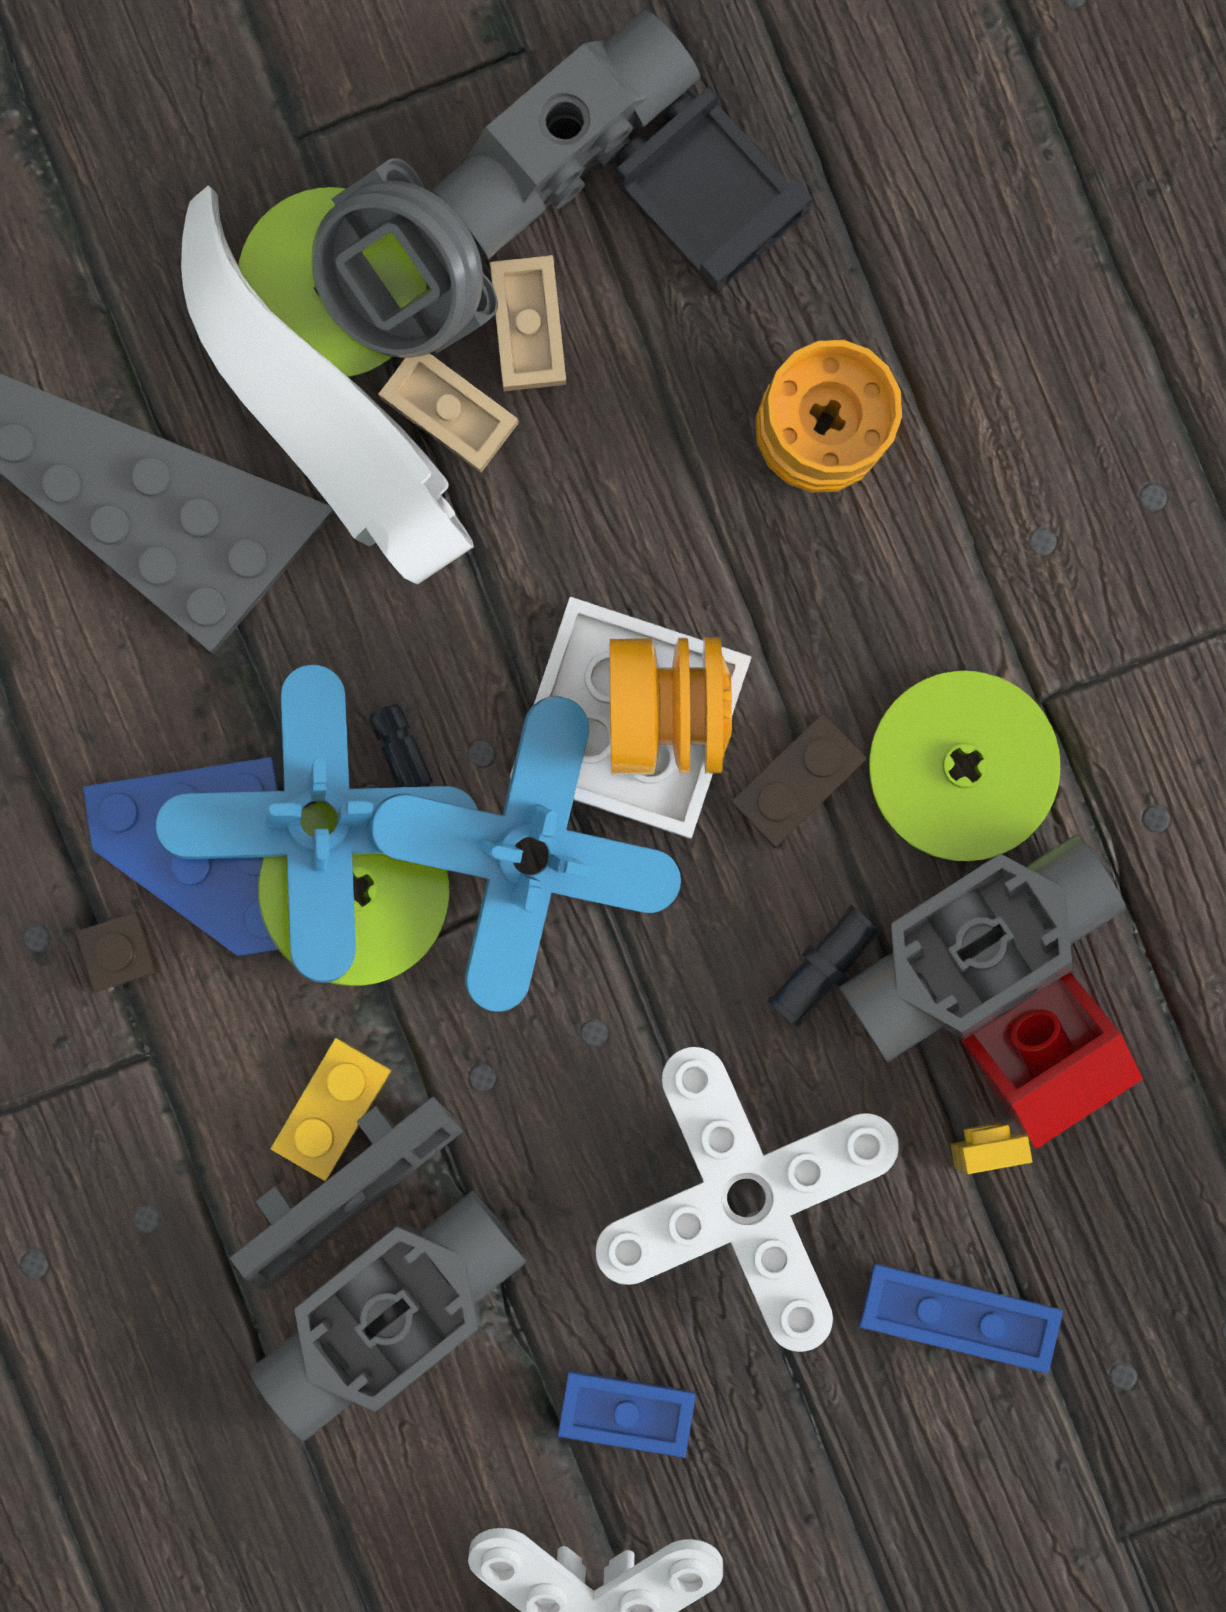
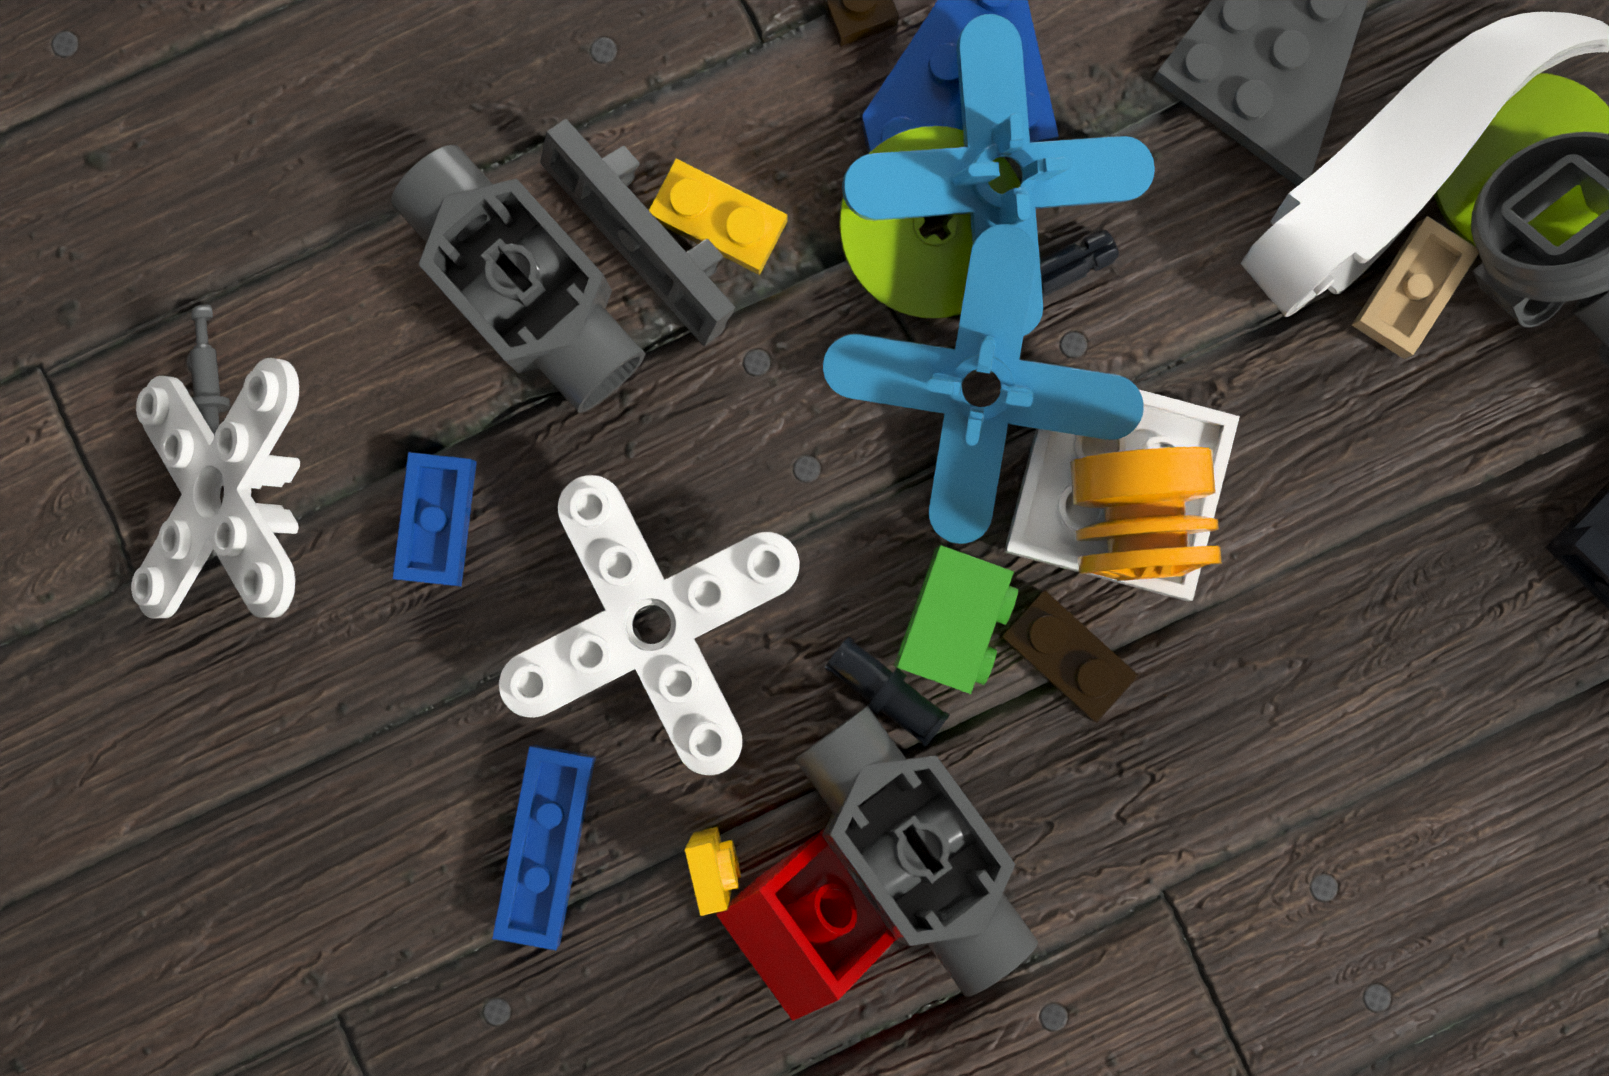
camera: 85 degrees right, 0 degrees up
(528, 323) = (1507, 361): tan plate -> none
(758, 893) = (956, 620): none -> bright green brick
(851, 388) = (1481, 669): light orange wheel -> none
(1014, 771) = (1145, 821): lime piece -> none

